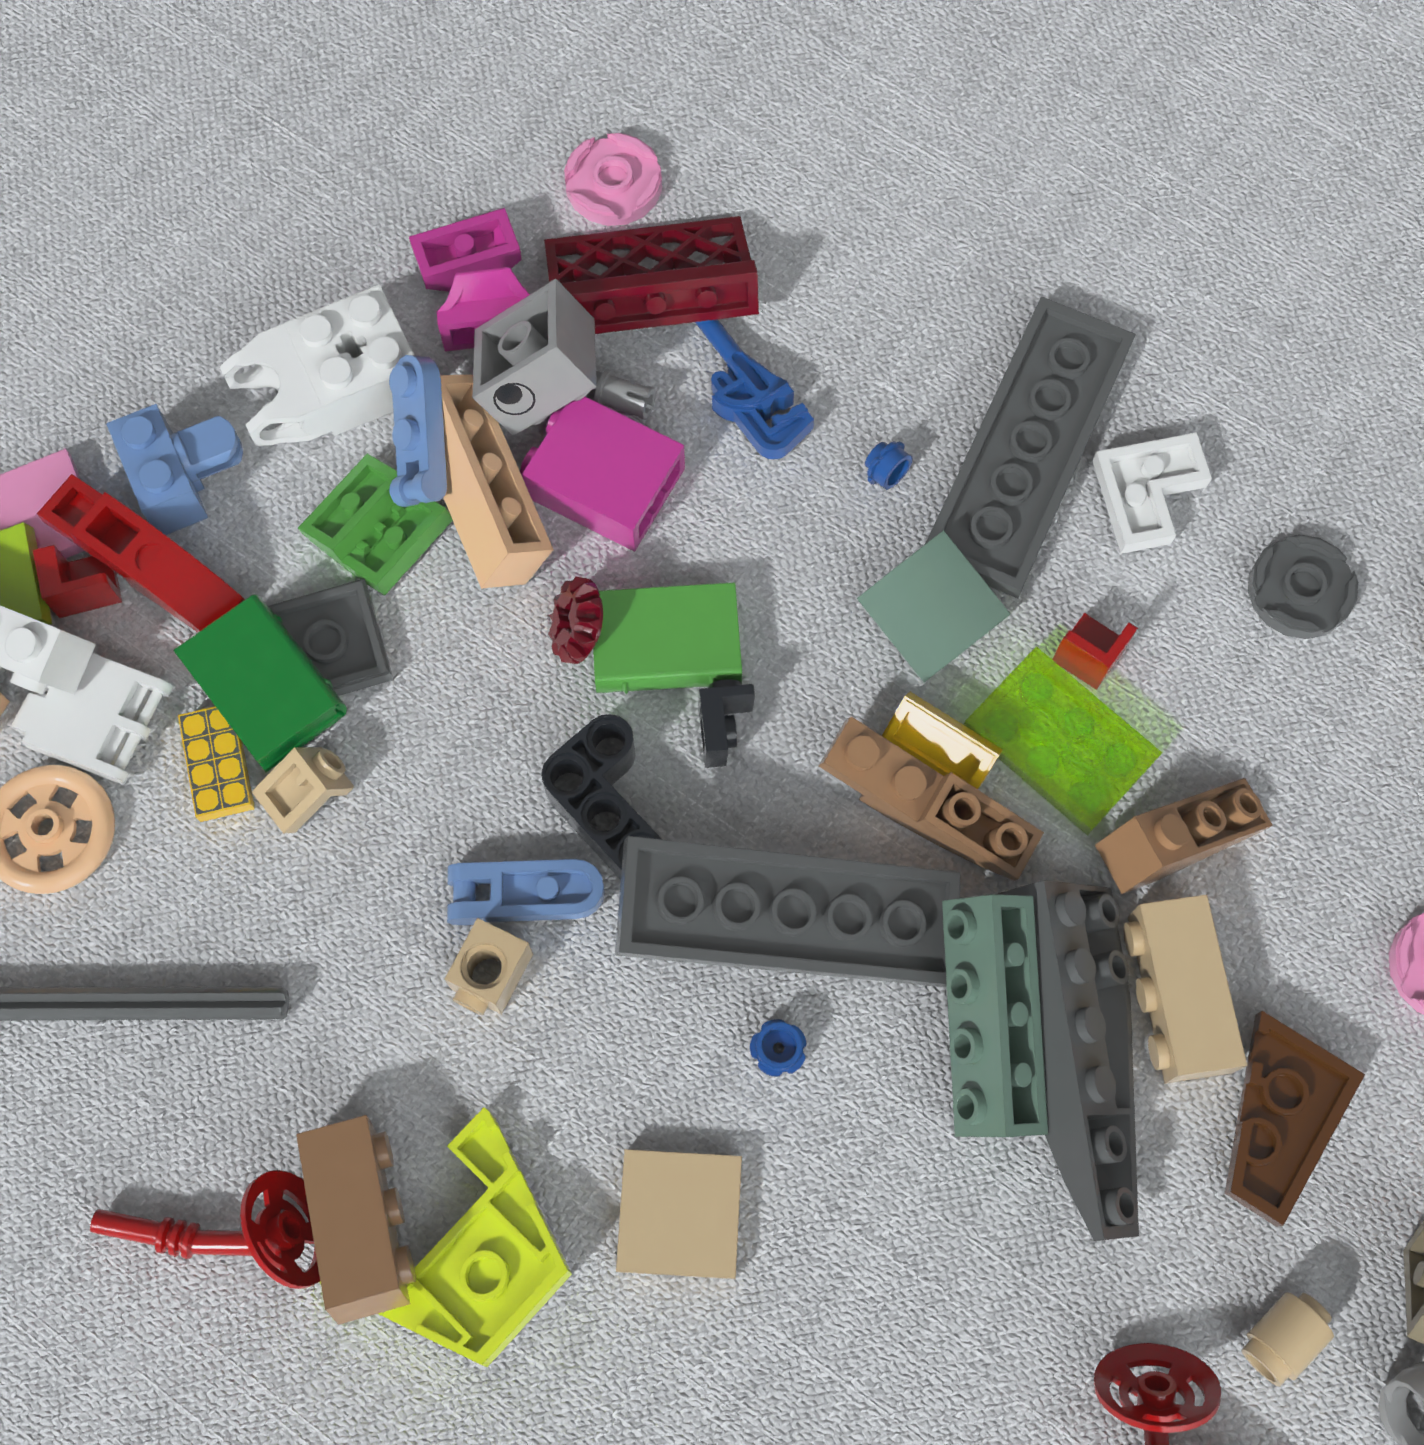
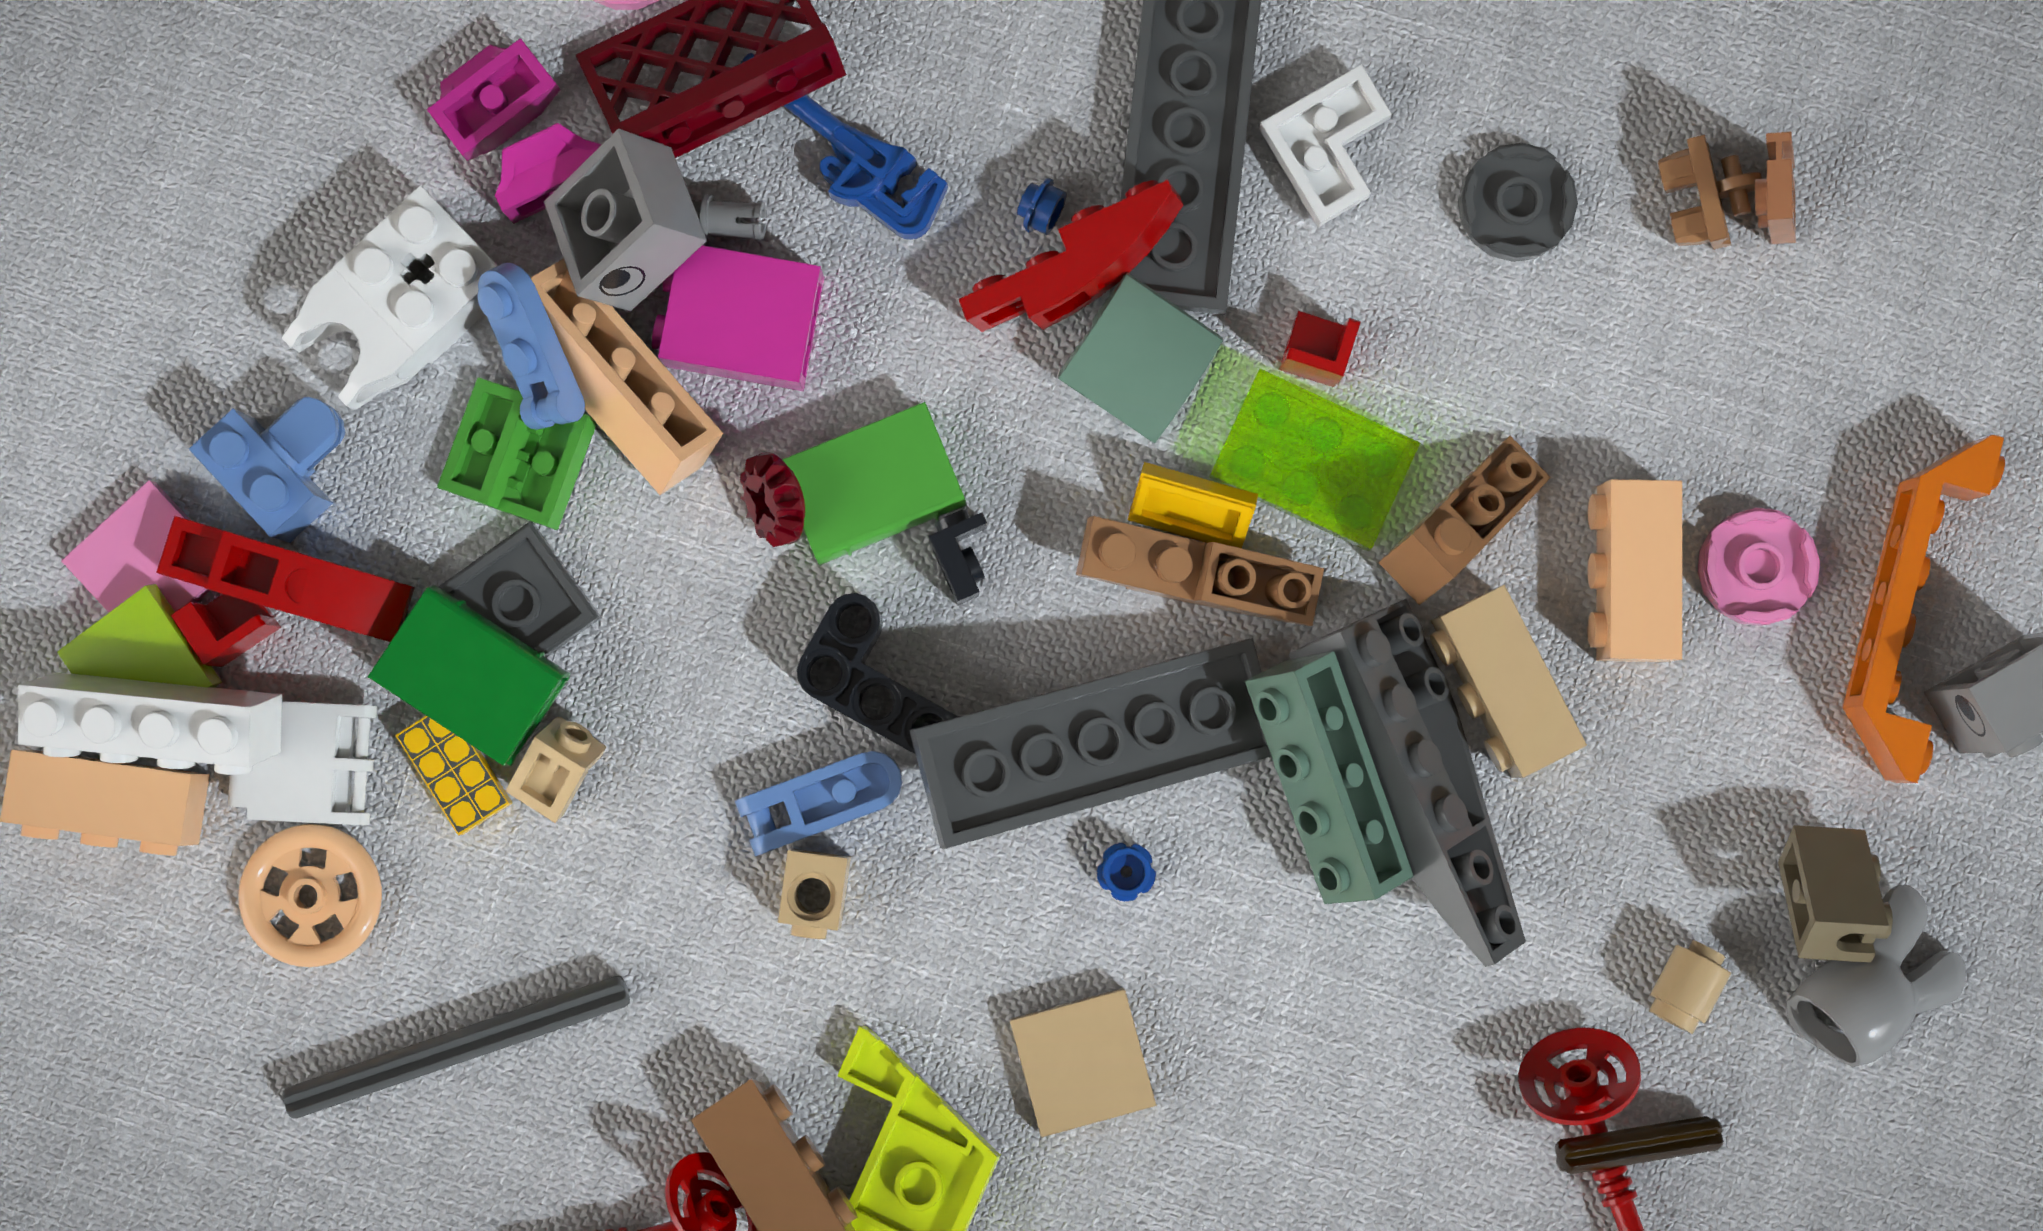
camera: 25 degrees left, 15 degrees up
(924, 505) = (1099, 251): none -> red slope
(1285, 1117) = (1636, 776): reddish brown wing -> none
(1333, 929) = (1636, 571): none -> light nougat brick

